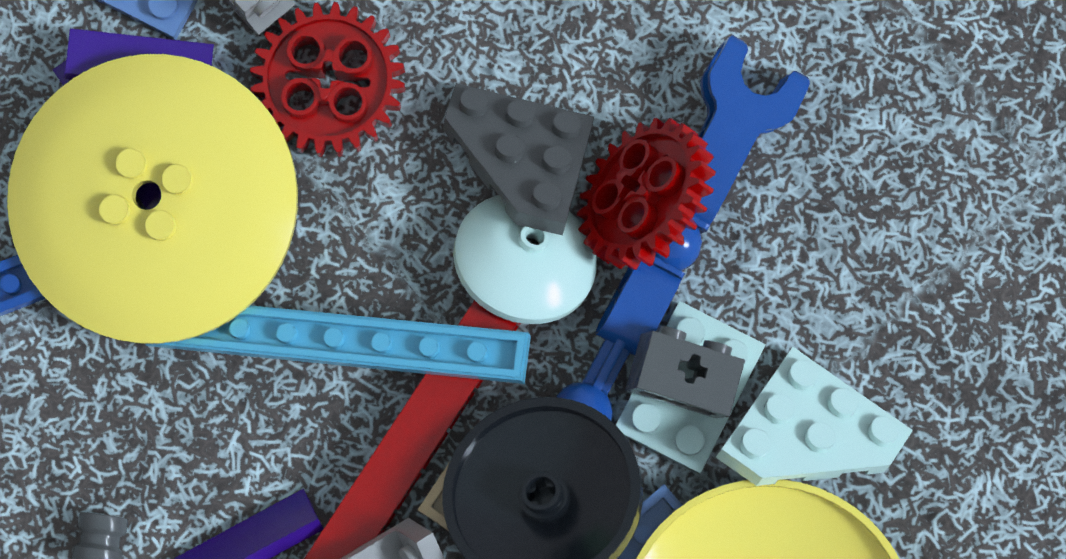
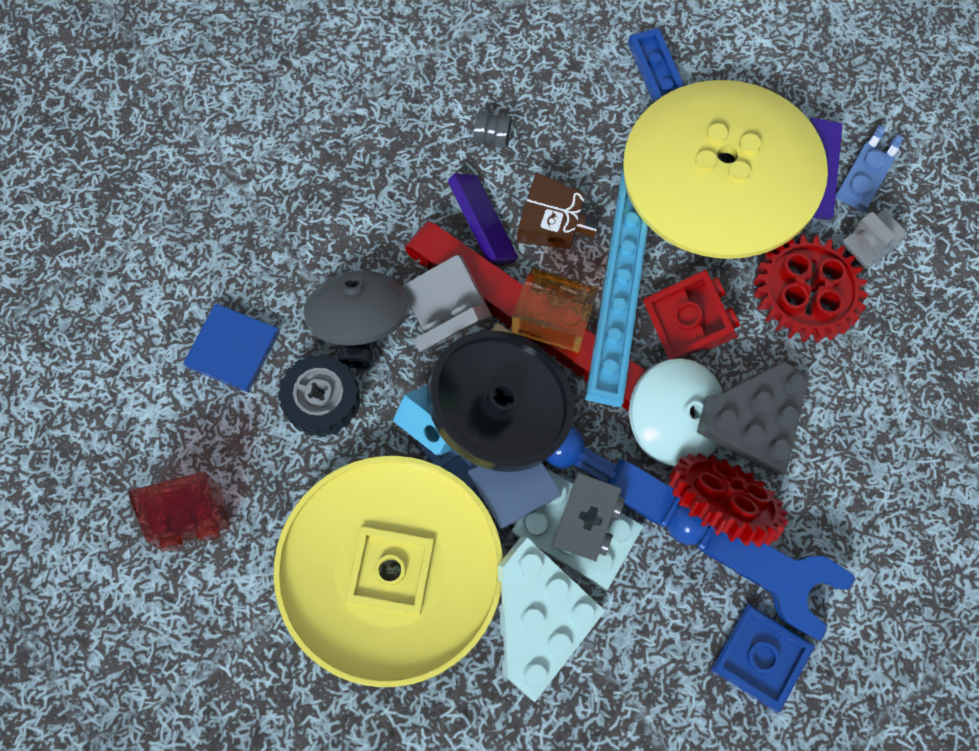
camera: 90 degrees right, 10 degrees down
(237, 439) = (554, 215): none -> reddish brown torso
(382, 241) = (692, 316): none -> red plate
(394, 428) = (554, 309): none -> clear orange slope
(663, 468) = (513, 494): none -> sand blue piece
(831, 149) = (762, 658): none -> blue tile

